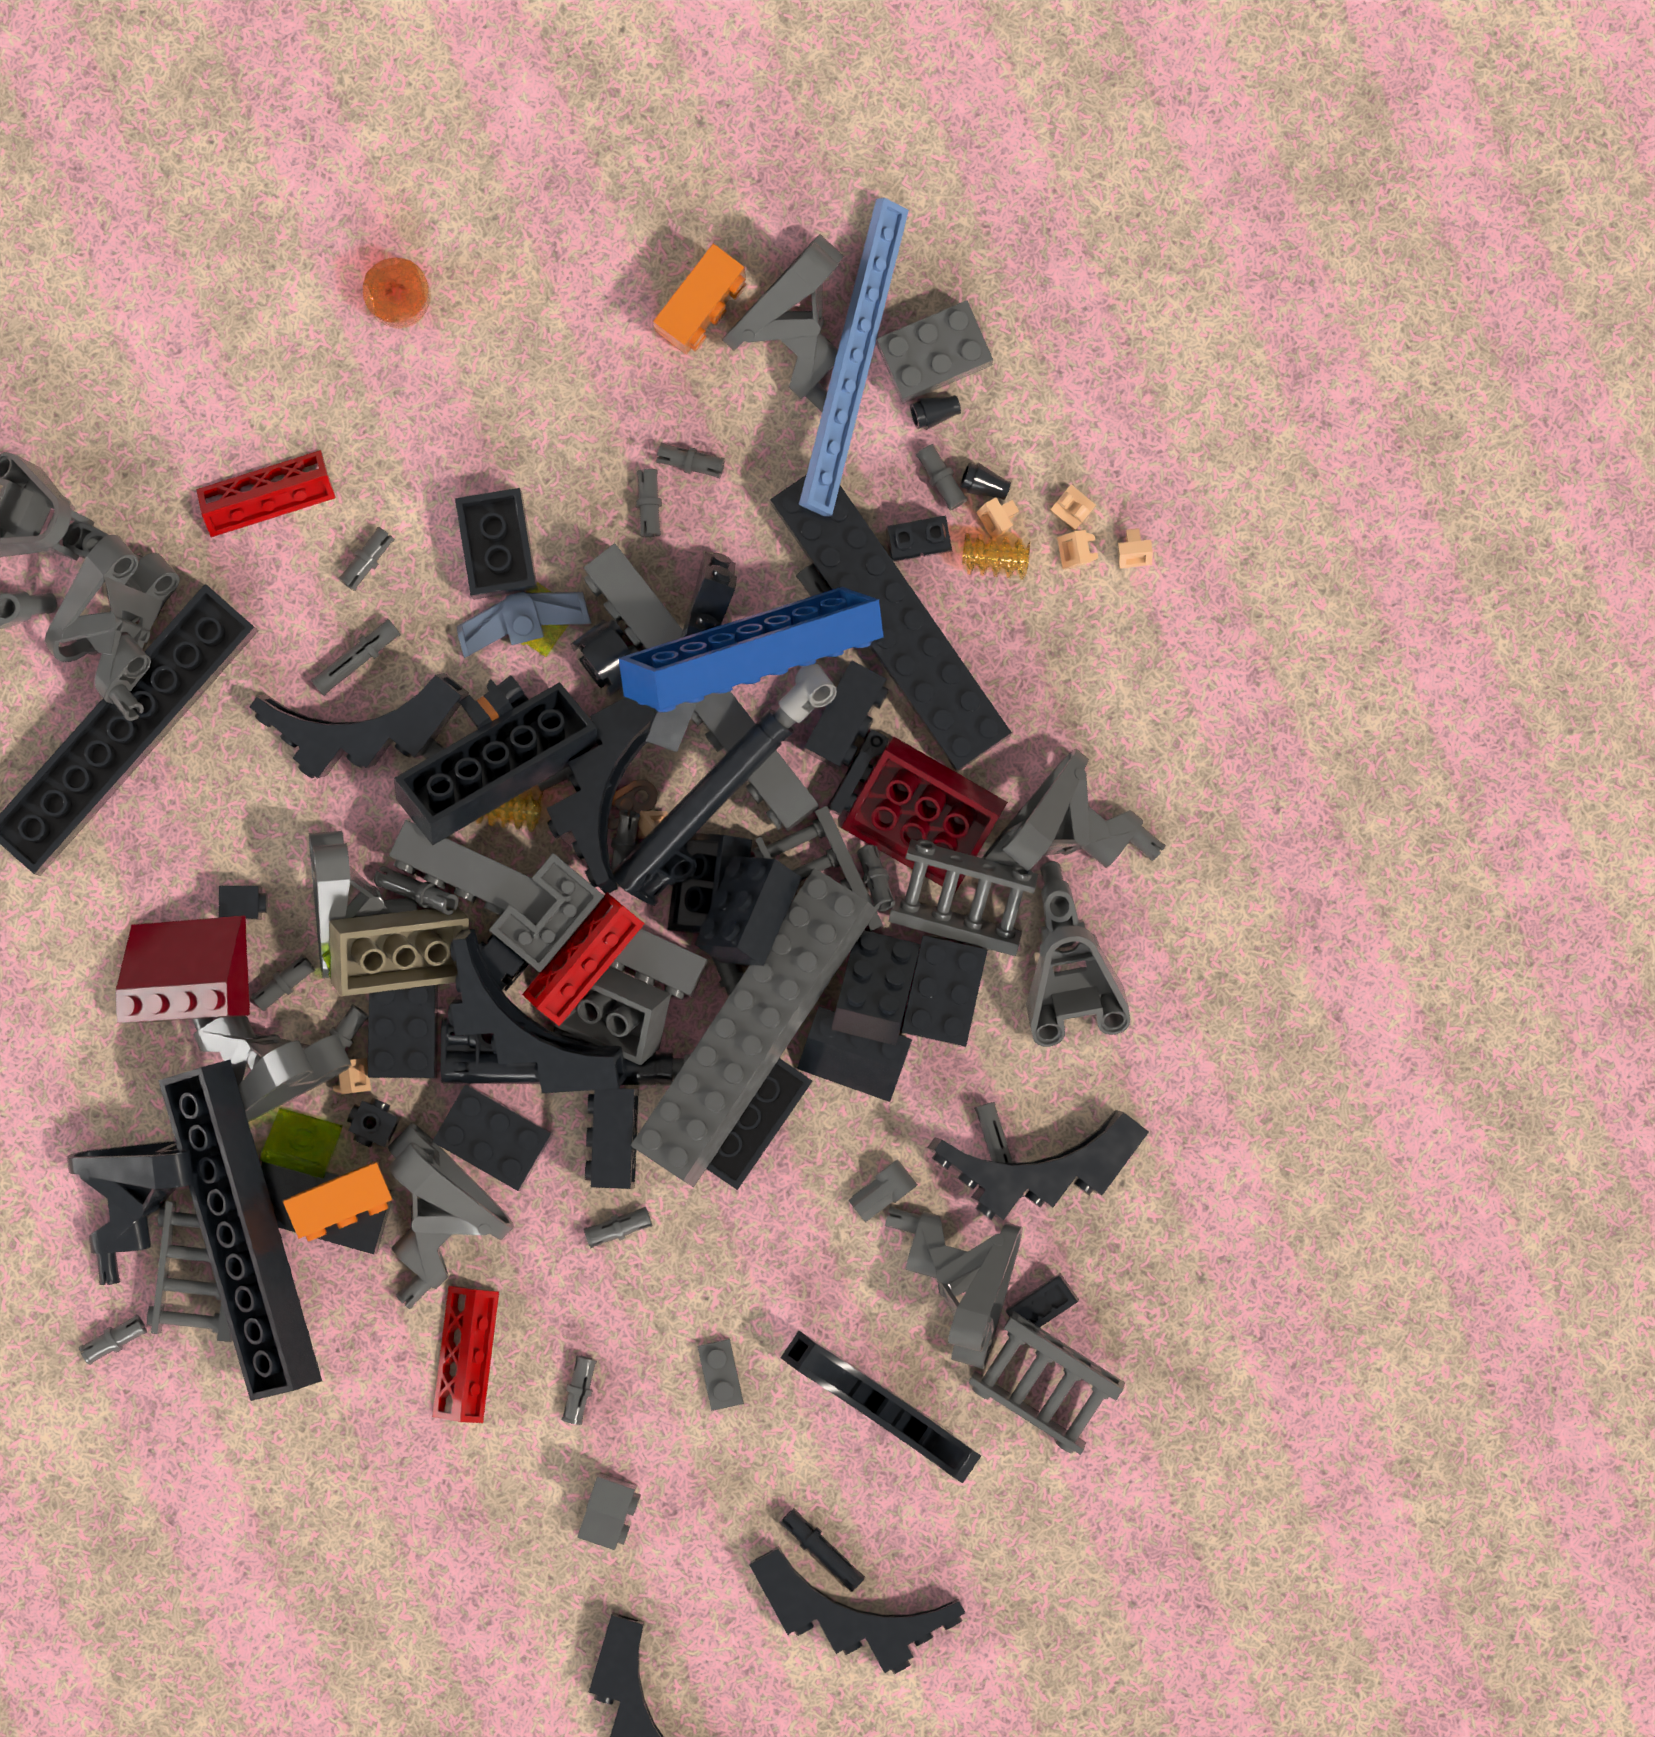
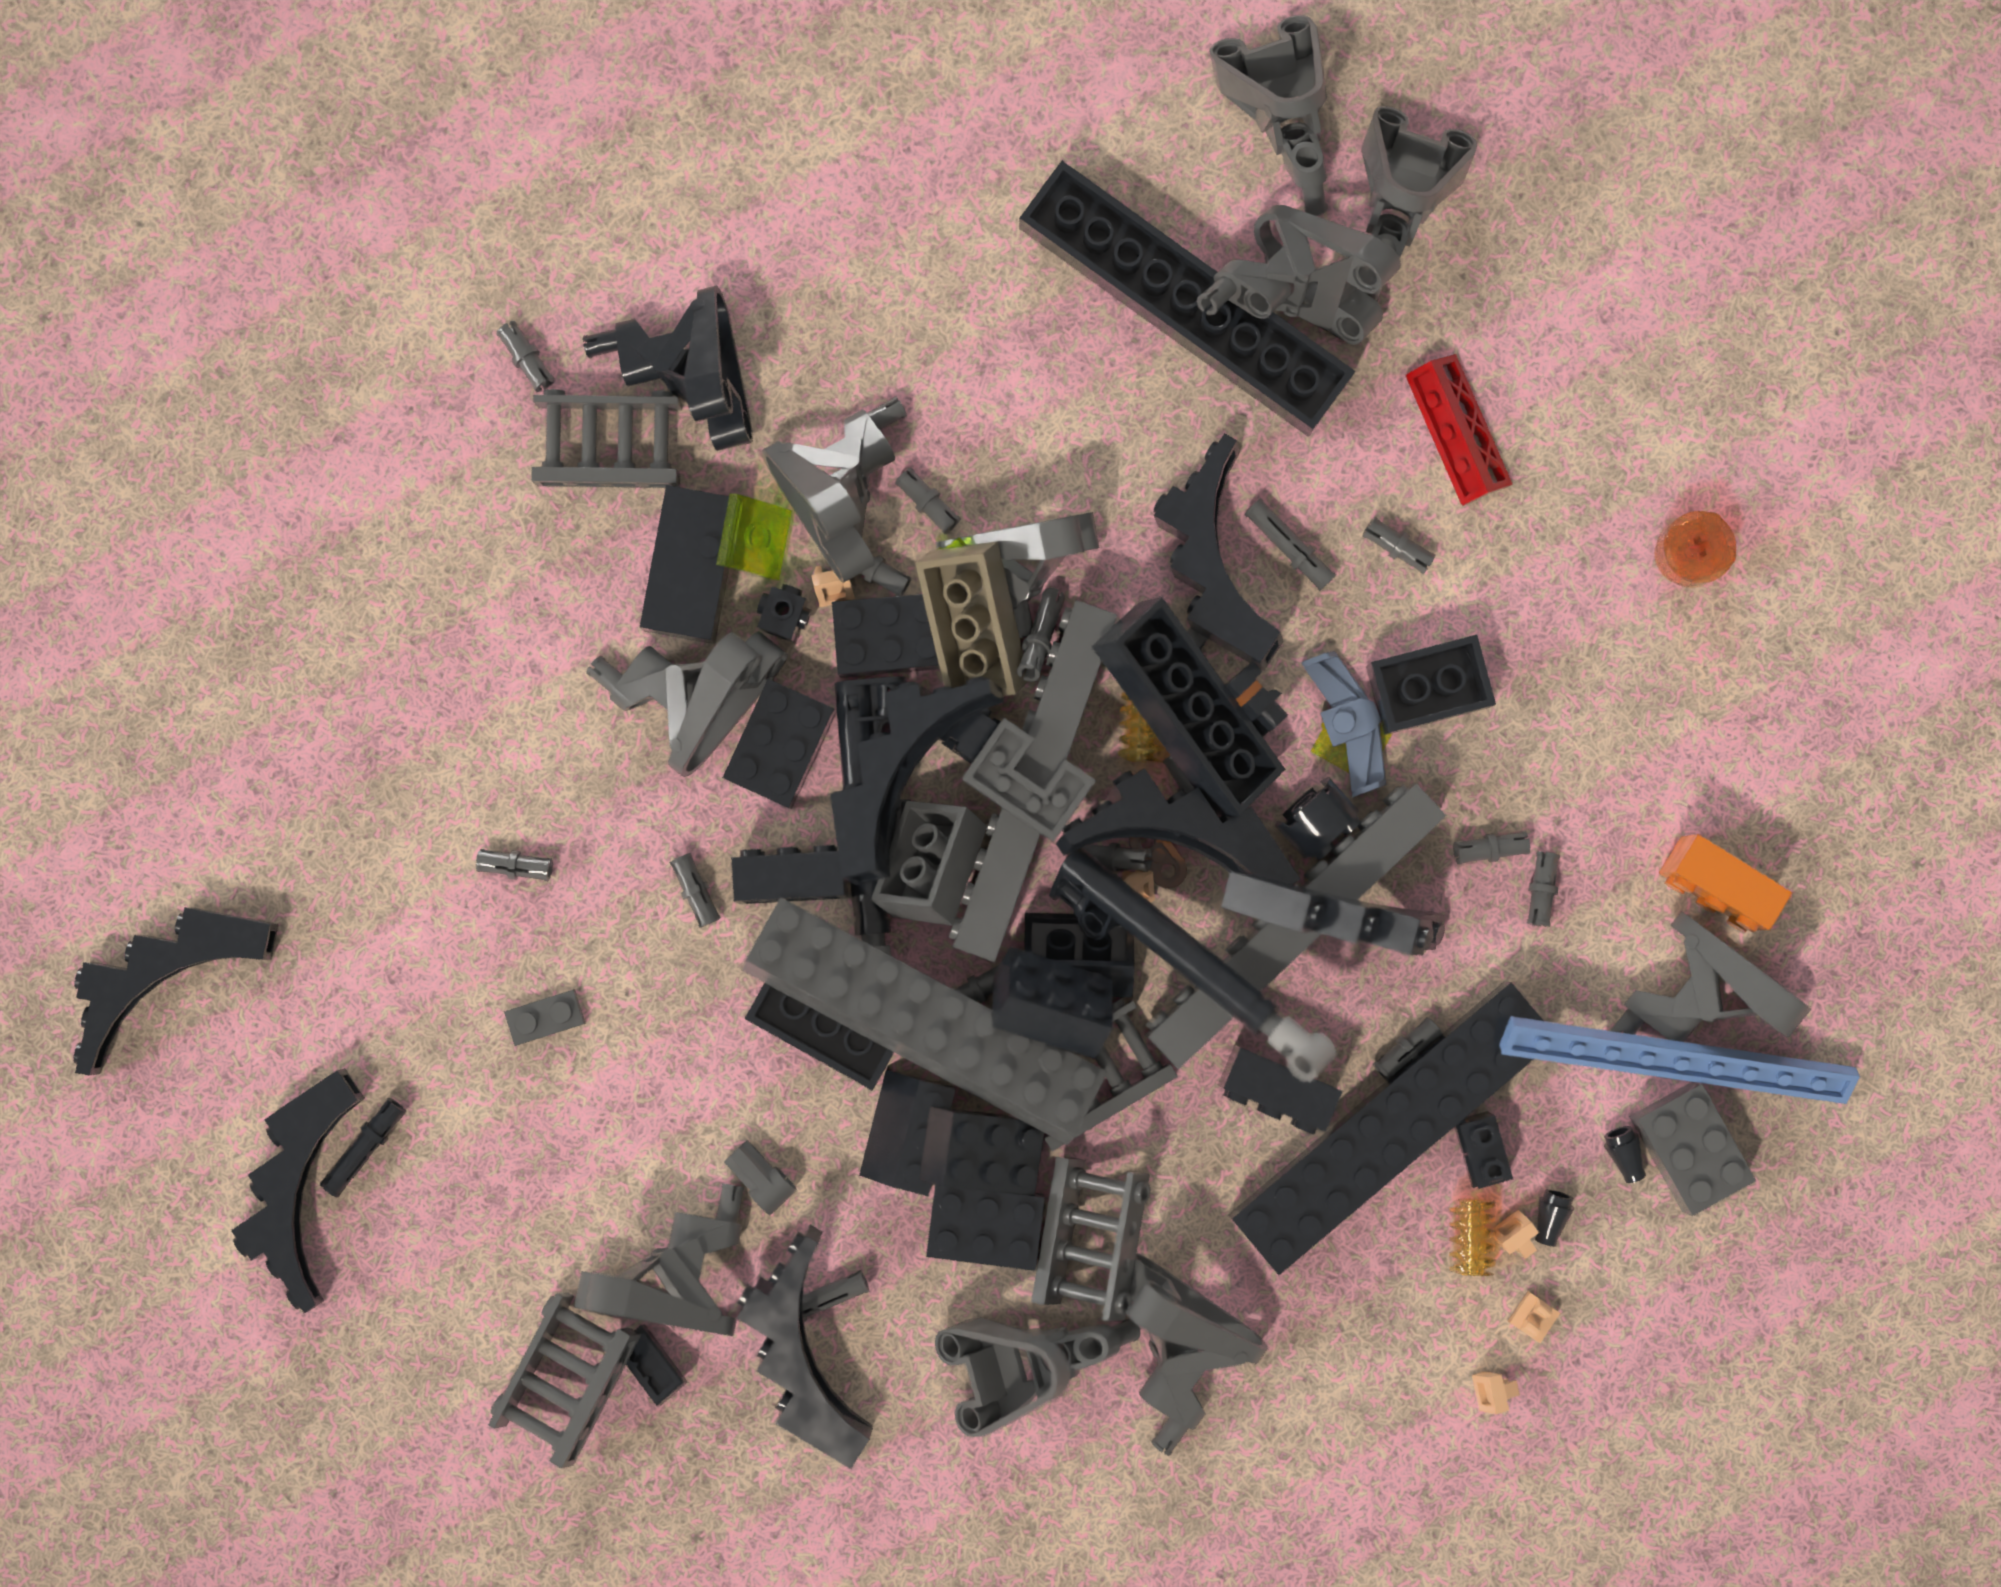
camera: 80 degrees right, 0 degrees up
(184, 971) = (928, 391): dark red slope -> none
(241, 1231) = (647, 479): black brick -> none
(242, 901) = (1010, 447): black brick -> none
(338, 1201) = (689, 581): orange brick -> none
(470, 1355) = (540, 743): red fence -> none
(585, 960) = (979, 827): red fence -> none
(607, 1511) = (384, 909): dark grey brick -> none
(750, 649) = (1345, 979): blue brick -> none
(858, 771) = (1218, 1106): black hinge -> none
(875, 877) = (1103, 1138): dark grey pin -> none
(881, 1406) = (520, 1203): black arch -> none
(922, 800) = (1193, 1182): dark red slope -> none
(941, 477) = (1553, 1168): dark grey pin -> none
(1075, 549) = (1488, 1325): light nougat tile -> none

